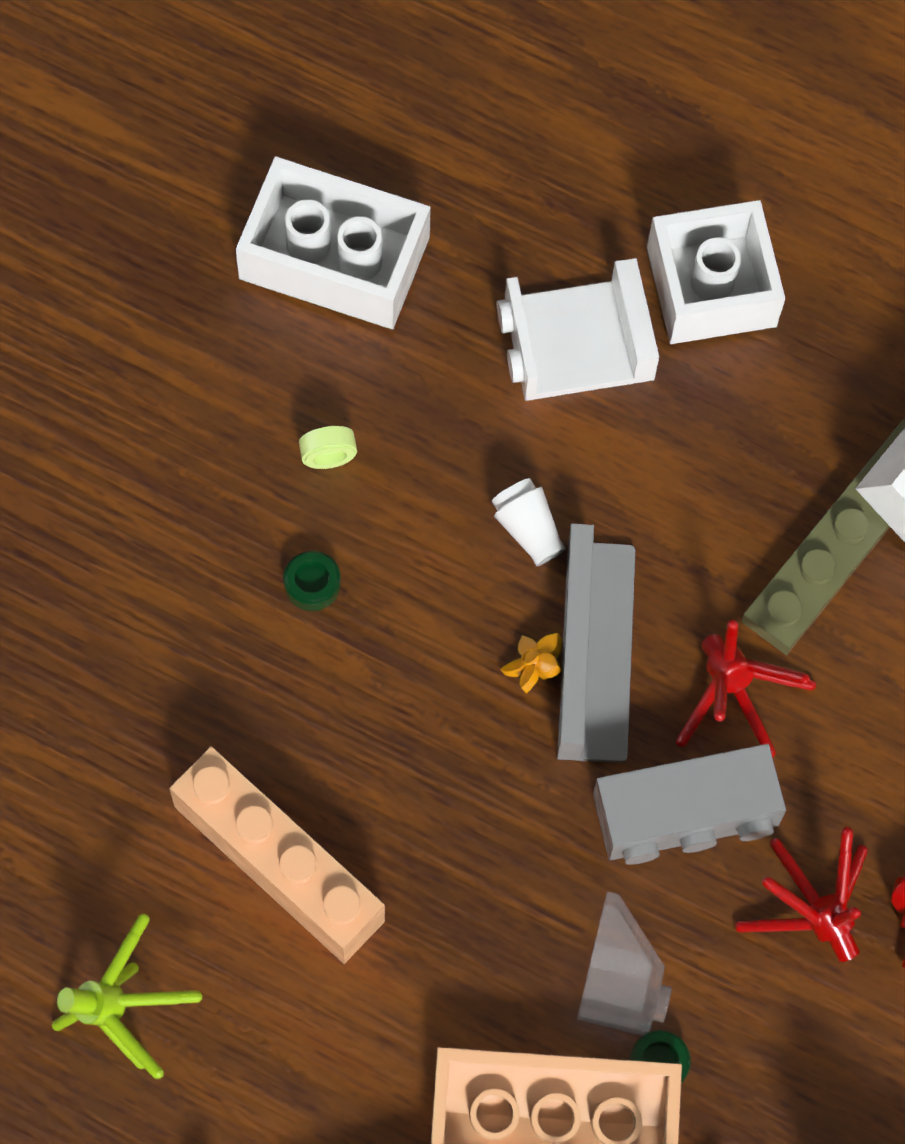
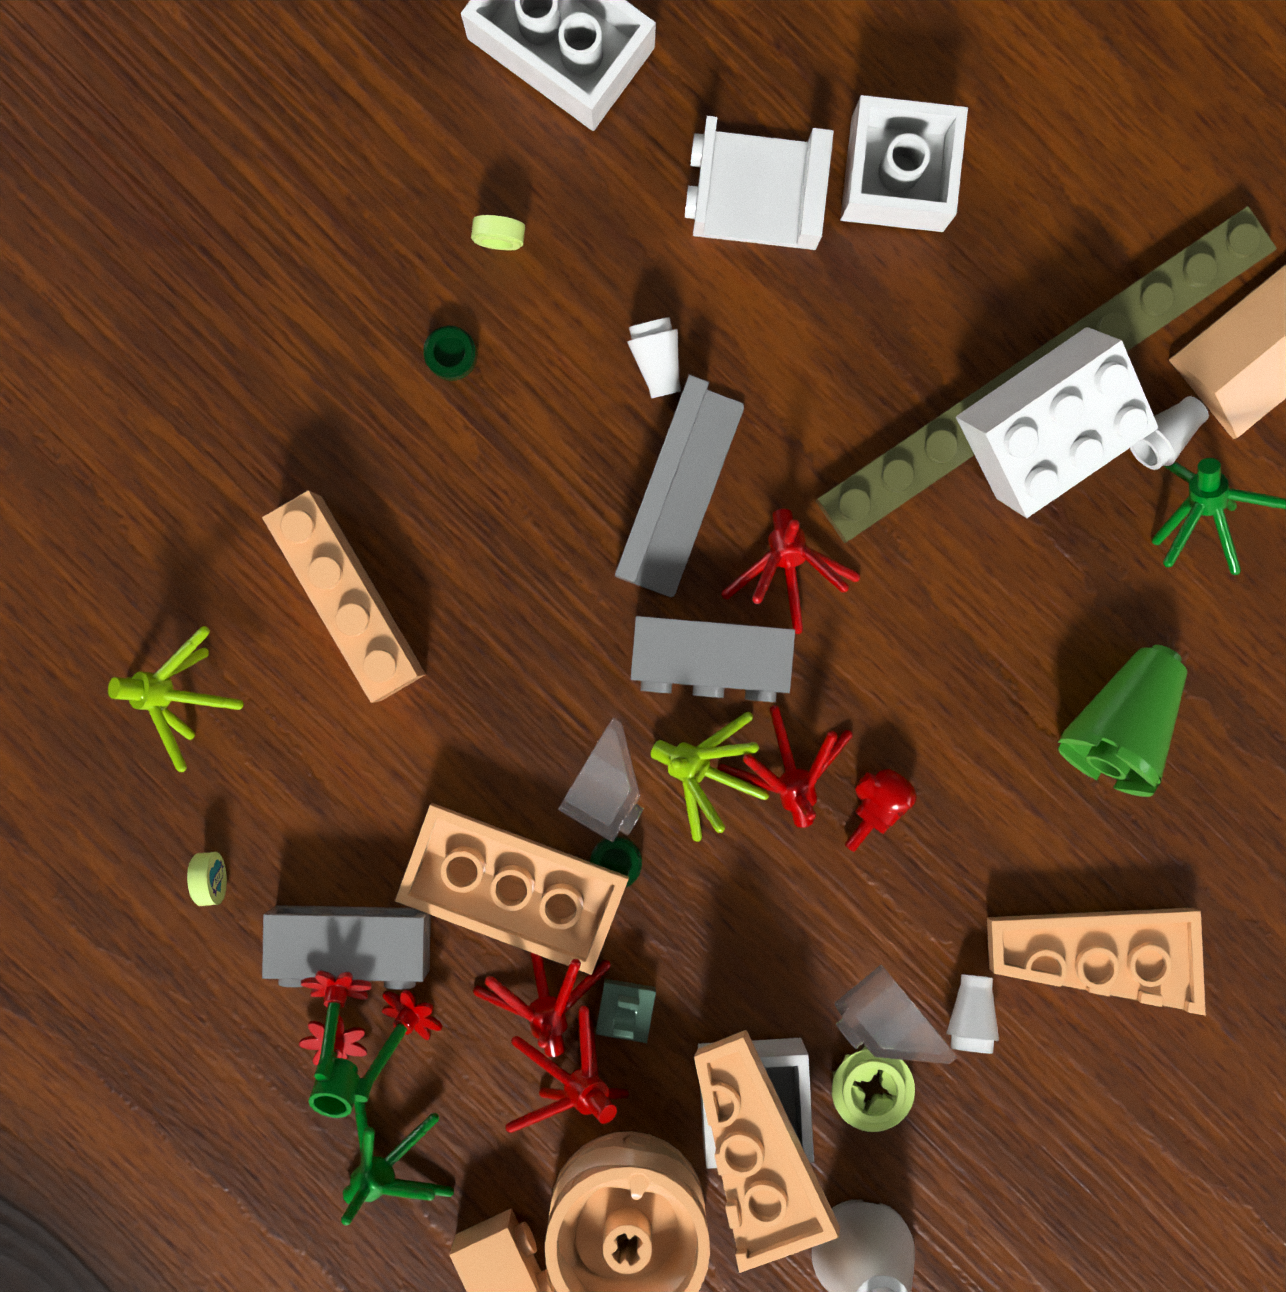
camera: 15 degrees right, 20 degrees up
(536, 660) = (622, 487): light orange plant -> none
(707, 926) = (692, 764): none -> lime plant

